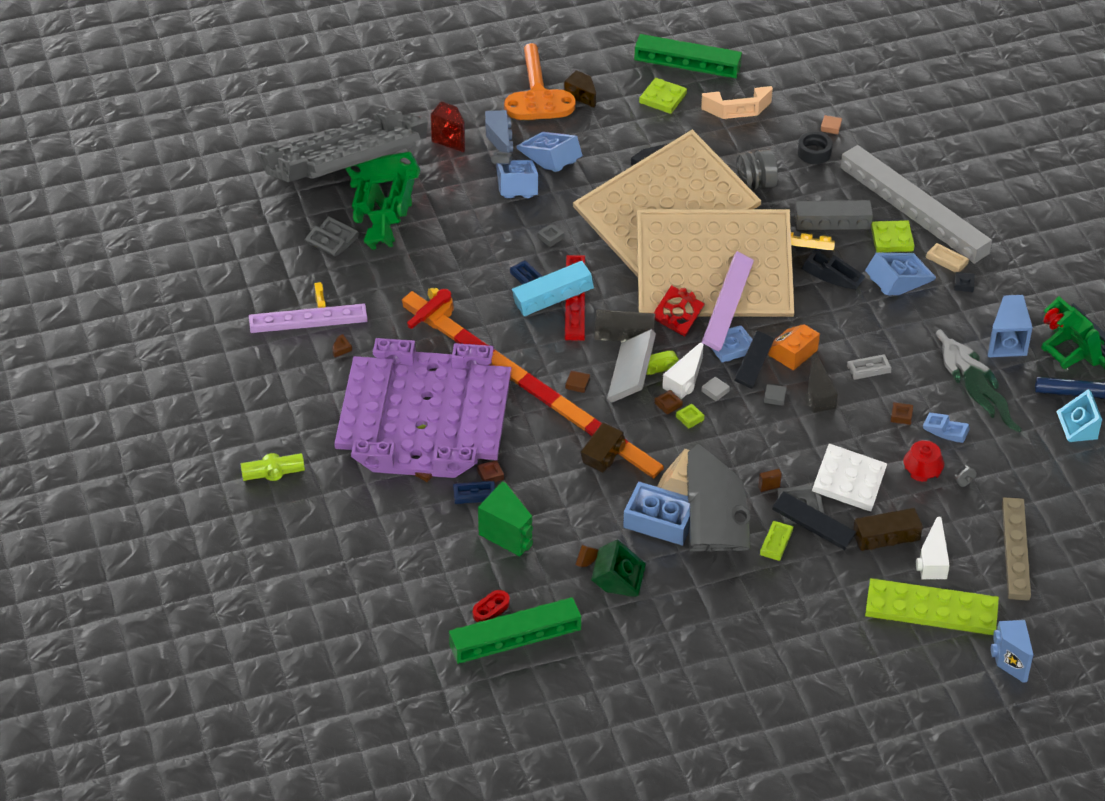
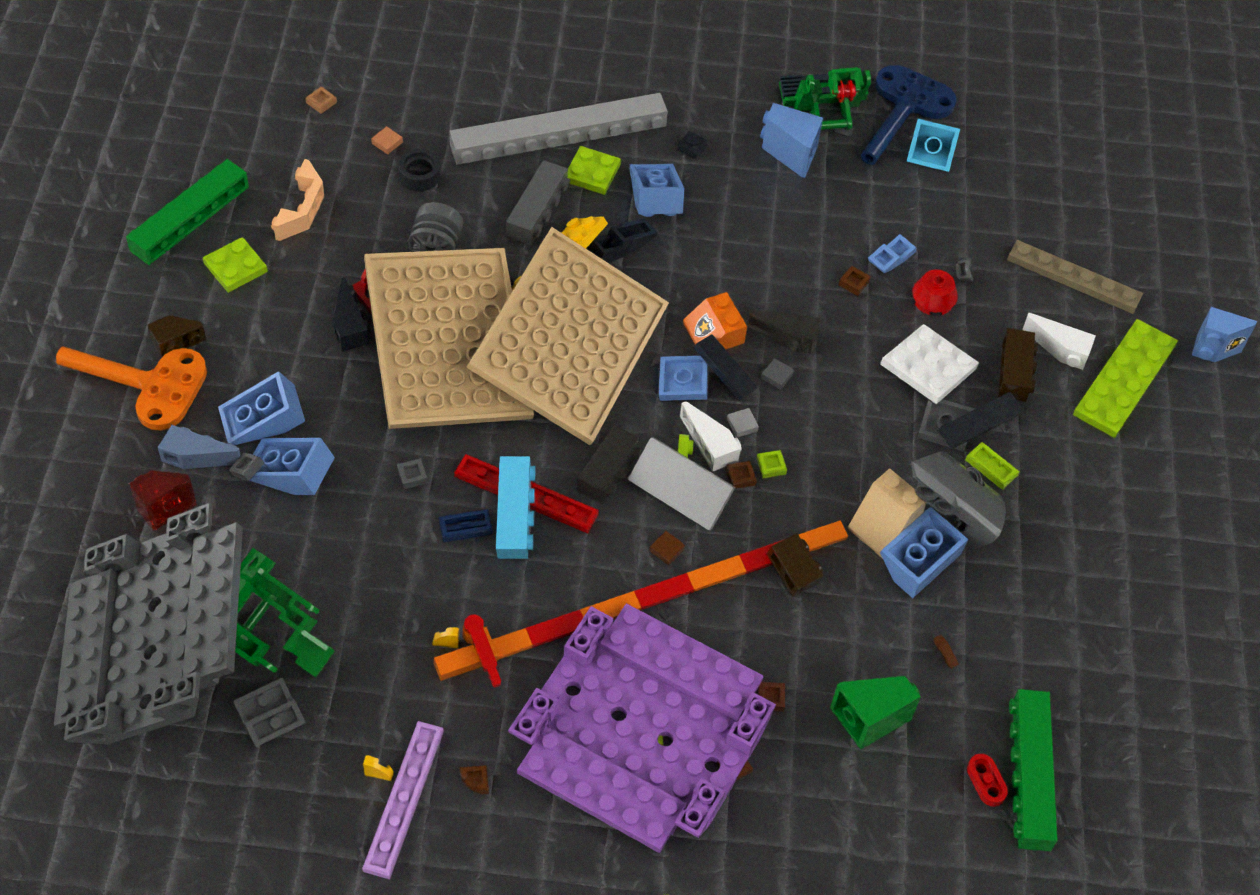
camera: 70 degrees left, 10 degrees up
(472, 492) = (789, 745): dark blue tile -> none
(618, 570) = (981, 630): dark green slope -> none
(672, 323) = (621, 382): red piece -> none
(727, 301) = (640, 348): lavender tile -> none
(769, 480) = (906, 433): reddish brown tile -> none
(841, 80) = (321, 100): none -> medium nougat tile
(869, 367) = (773, 290): light grey tile -> none
(947, 258) = (650, 142): tan tile -> none
(975, 377) = (829, 198): clear green piece -> none

